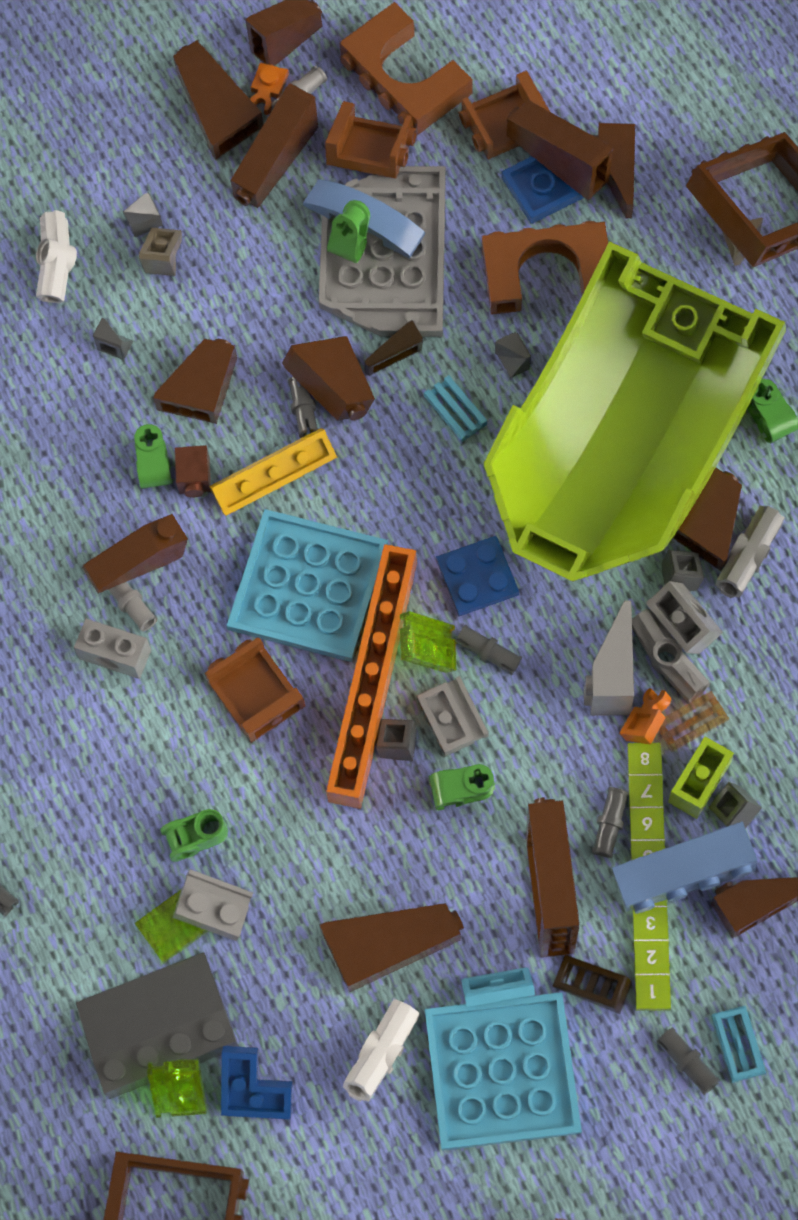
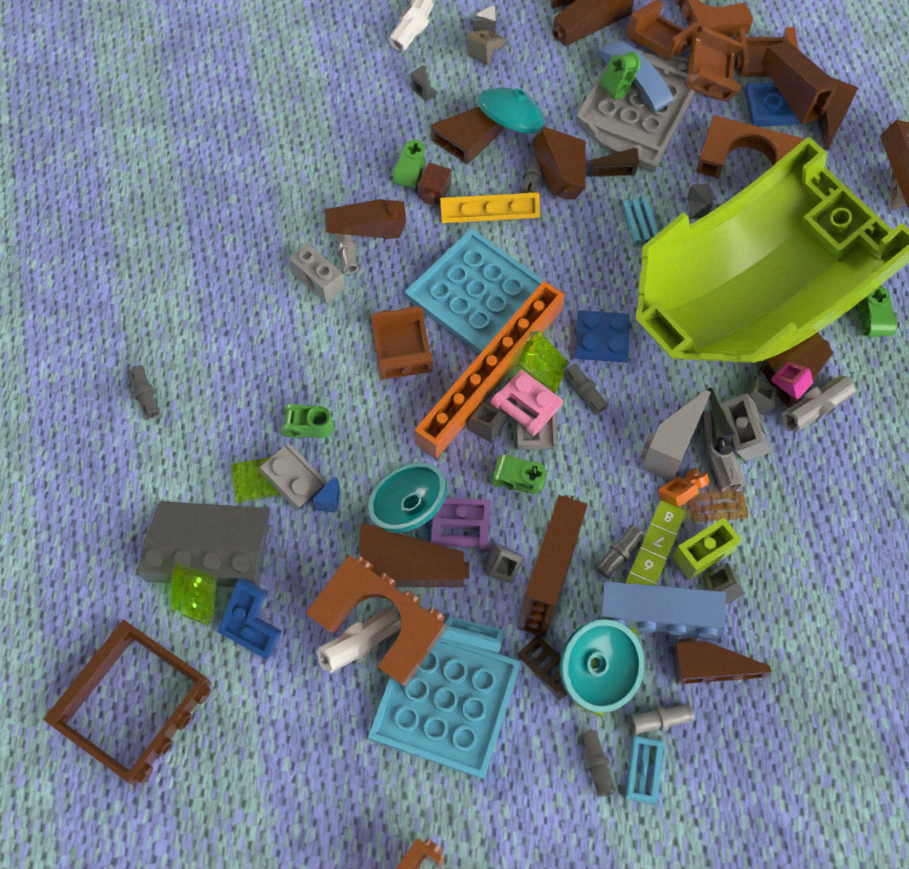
camera: 20 degrees right, 5 degrees down
(239, 333) = (512, 109): none -> teal dish
(266, 912) = (328, 497): none -> blue slope
(344, 861) = (408, 497): none -> teal dish
(351, 991) = (356, 583): none -> dark orange arch
(422, 860) = (462, 514): none -> medium lavender plate
(436, 689) = (531, 396): none -> bright pink plate
(452, 166) = (713, 65): none -> dark orange panel
(490, 893) = (502, 563): none -> dark grey slope
(660, 636) = (721, 430): none -> black piece
(664, 954) = (616, 668): none -> teal dish
(711, 538) = (793, 379): none -> dark pink slope
(732, 983) = (661, 718): none -> light grey pin

